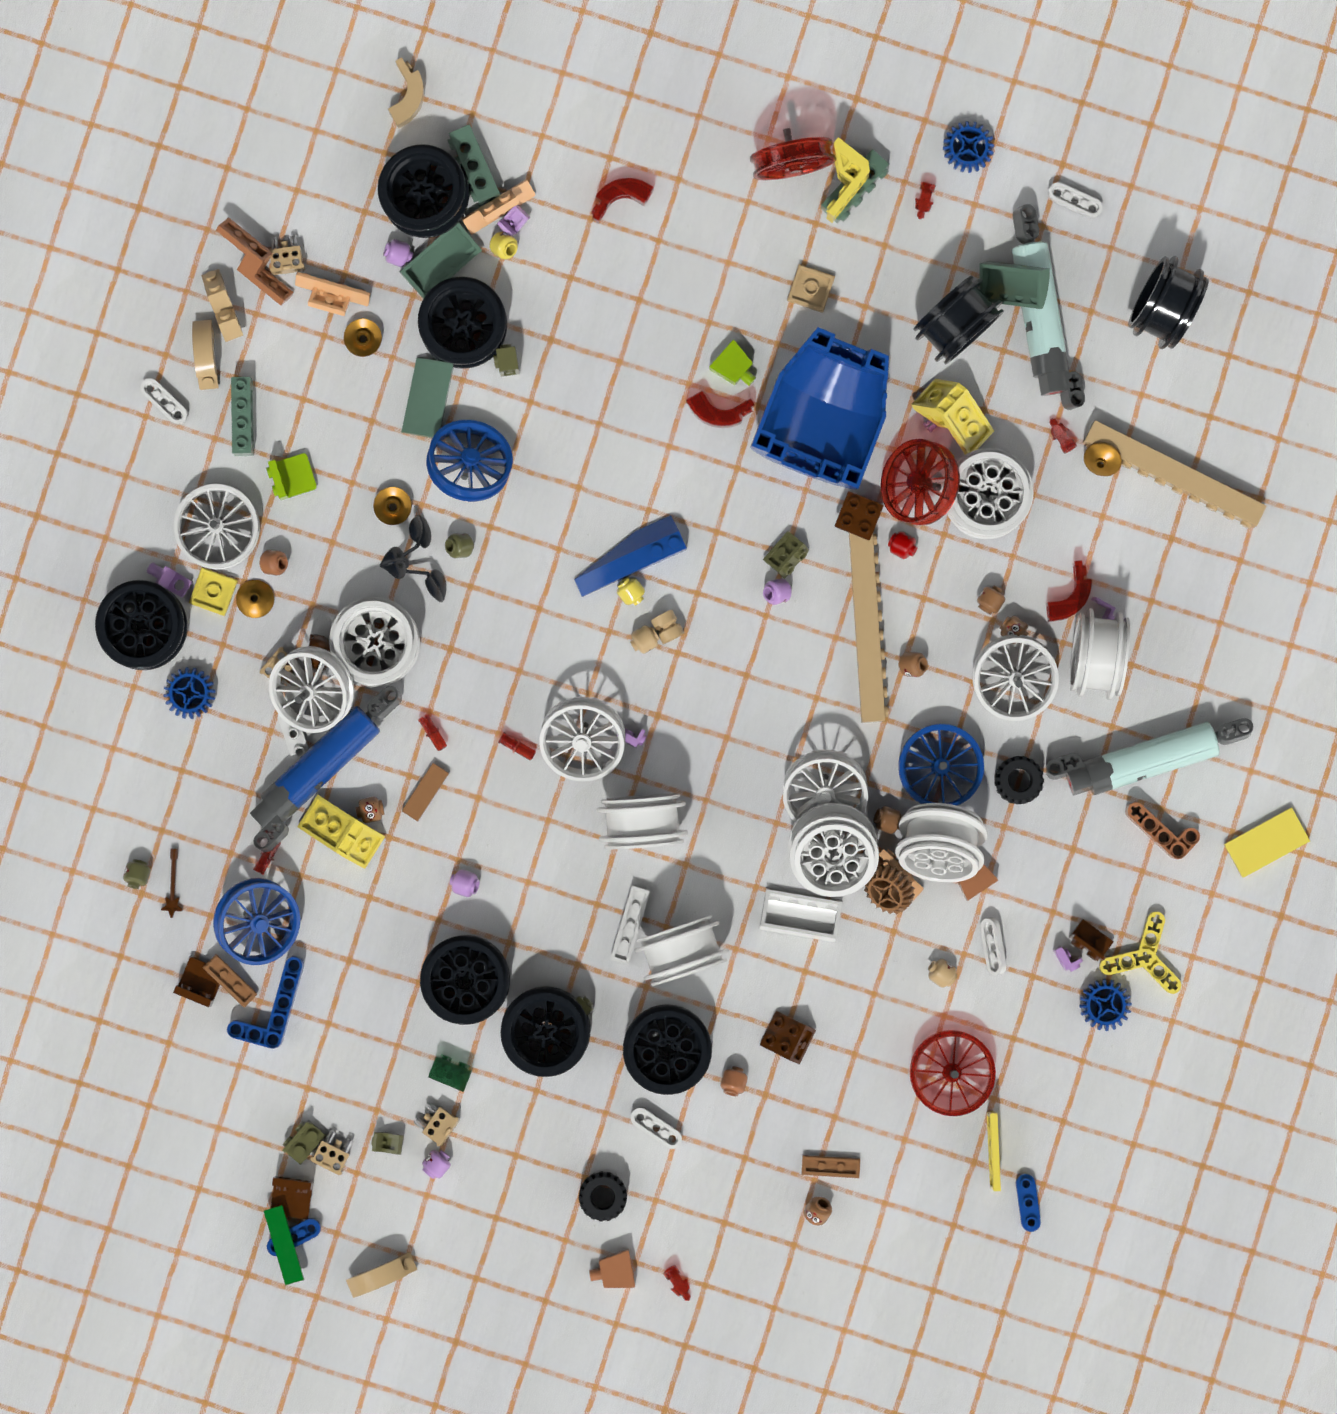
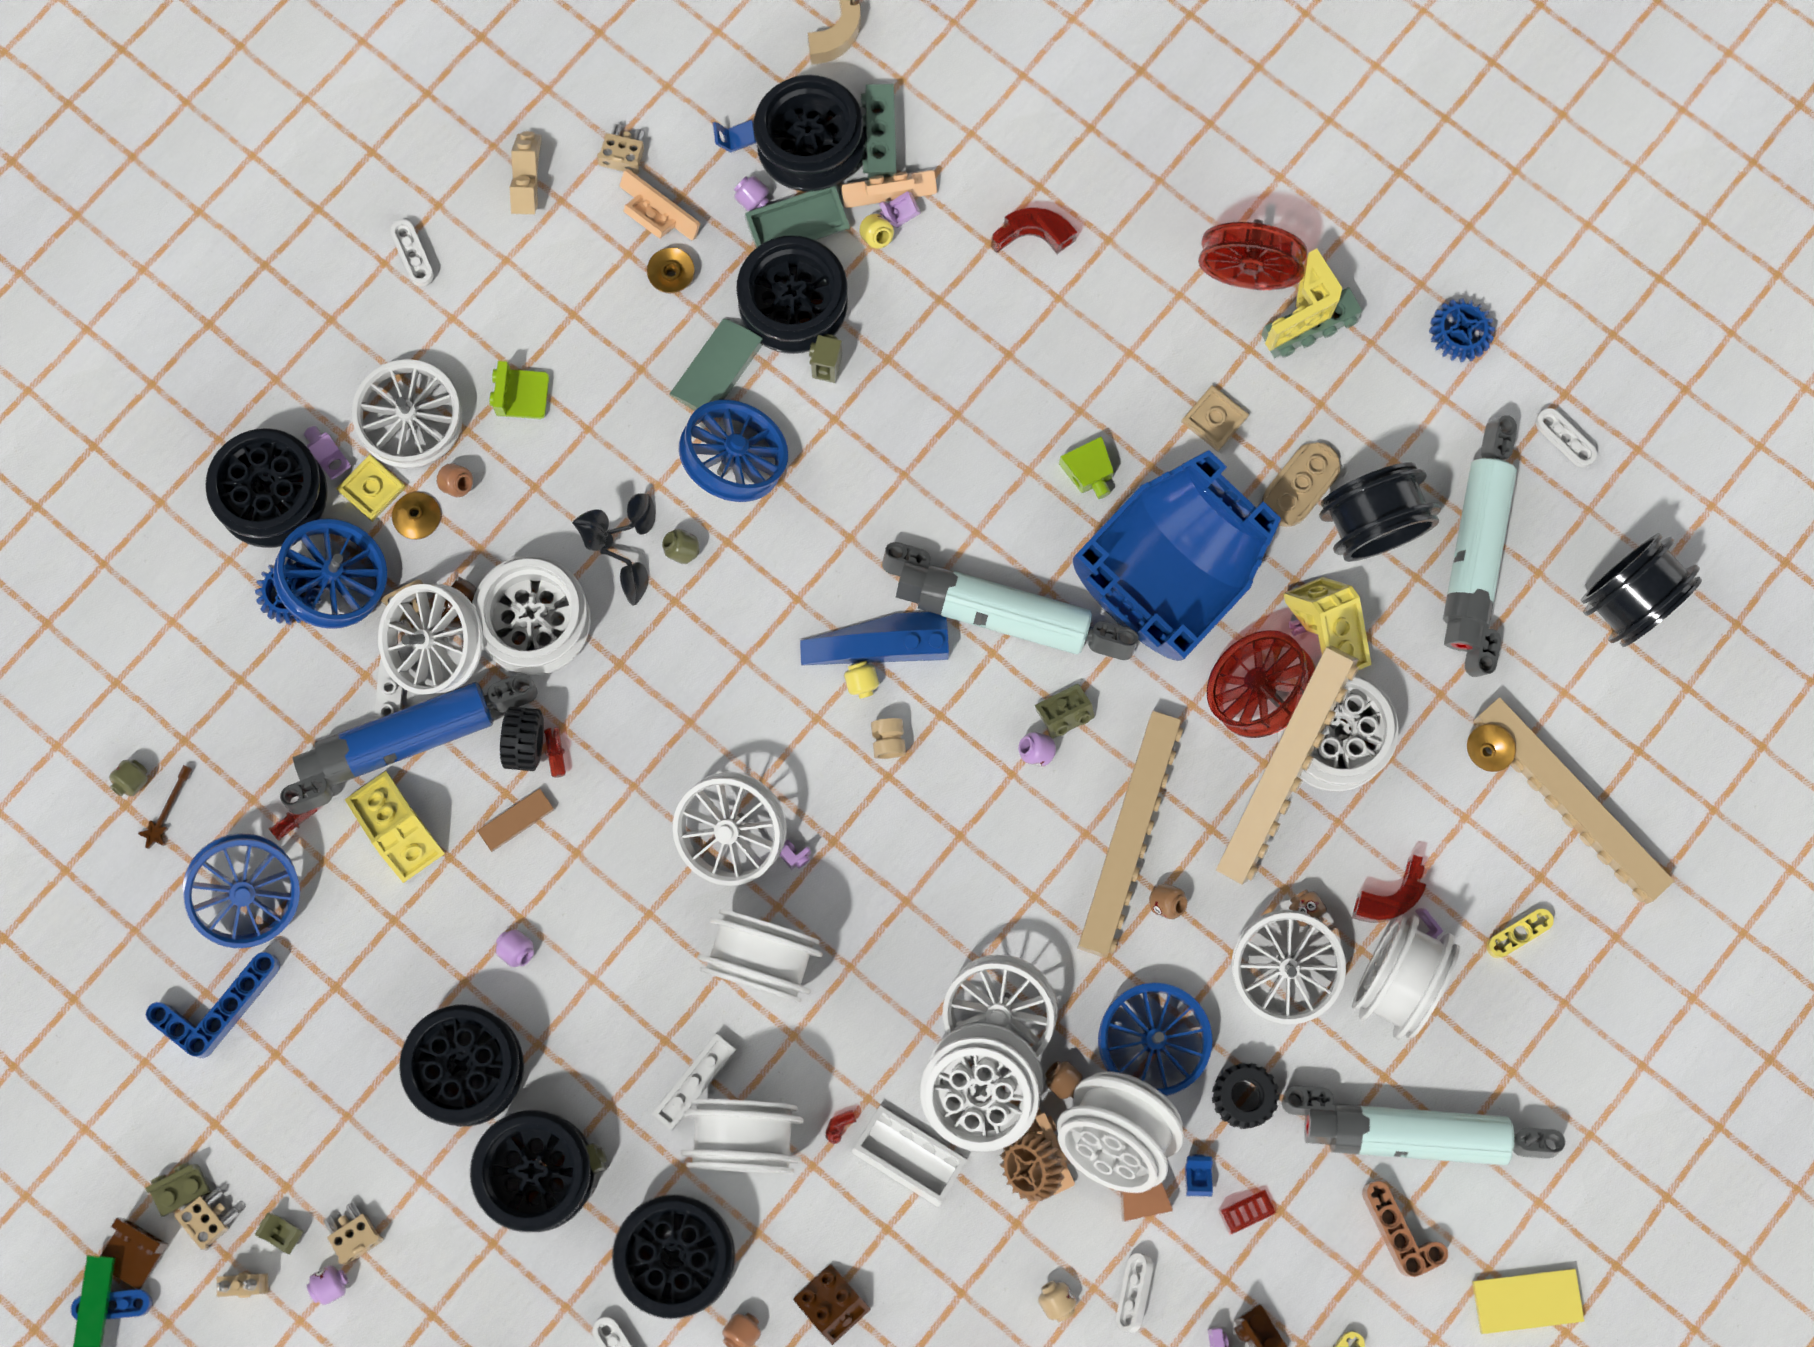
camera: 20 degrees right, 10 degrees down
(197, 984) = (142, 940): reddish brown bracket -> none
(204, 354) = (478, 216): tan arch -> none
(216, 669) = (330, 573): none -> blue wheel
(230, 980) = (179, 952): medium nougat tile -> none
(242, 416) = (493, 303): sand green brick -> none
(254, 261) = (583, 138): nougat bracket -> none
(366, 212) = (734, 137): none -> blue bracket
(370, 809) = (439, 813): medium nougat head -> none
(378, 1187) = (242, 1285): none -> tan piece
(385, 499) = (622, 460): pearl gold dish -> none
(406, 733) = (521, 738): none -> black tyre
(450, 1073) = (396, 1176): clear green bracket -> none
(517, 746) = (648, 809): clear red axle -> none
(644, 639) = (854, 742): tan head -> none
(710, 497) = (1002, 607): none -> piece
(715, 417) = (1045, 519): clear red arch -> none
(741, 914) = (836, 1126): none -> clear red arm
(858, 515) = (1171, 697): reddish brown bracket -> none
(893, 314) = (1302, 483): none -> tan tile
(902, 545) = (1210, 754): red head -> none
(924, 204) = (1384, 374): clear red piece -> none
(960, 536) = (1287, 765): none -> tan brick
(991, 599) = (1293, 861): medium nougat head -> none
(1007, 848) = (1198, 1175): none -> blue bracket
(1014, 284) = (1465, 500): sand green slope -> none
(1035, 866) = (1228, 1220): none -> clear red slope
(1058, 432) = (1449, 697): clear red piece -> none
(1175, 571) = (1532, 917): none -> light yellow beam

